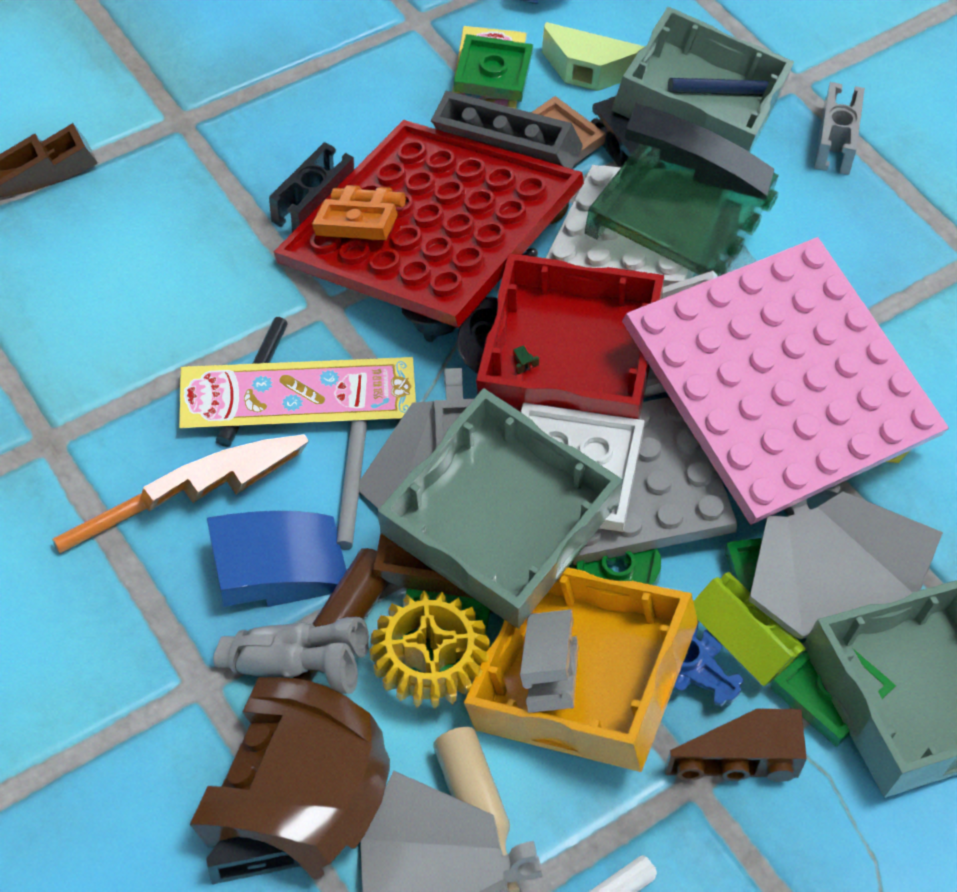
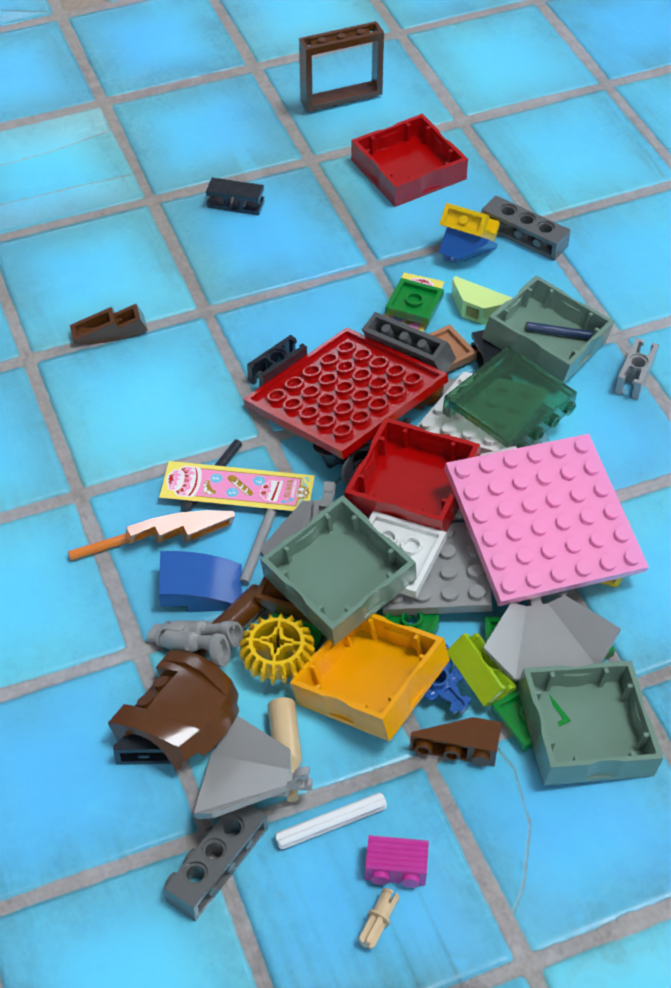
camera: 15 degrees right, 5 degrees down
(358, 213) = (300, 381): orange plate -> none
(524, 359) = (381, 485): dark green piece -> none
(549, 661) = (347, 665): light grey piece -> none
(697, 148) = (529, 371): black slope -> none

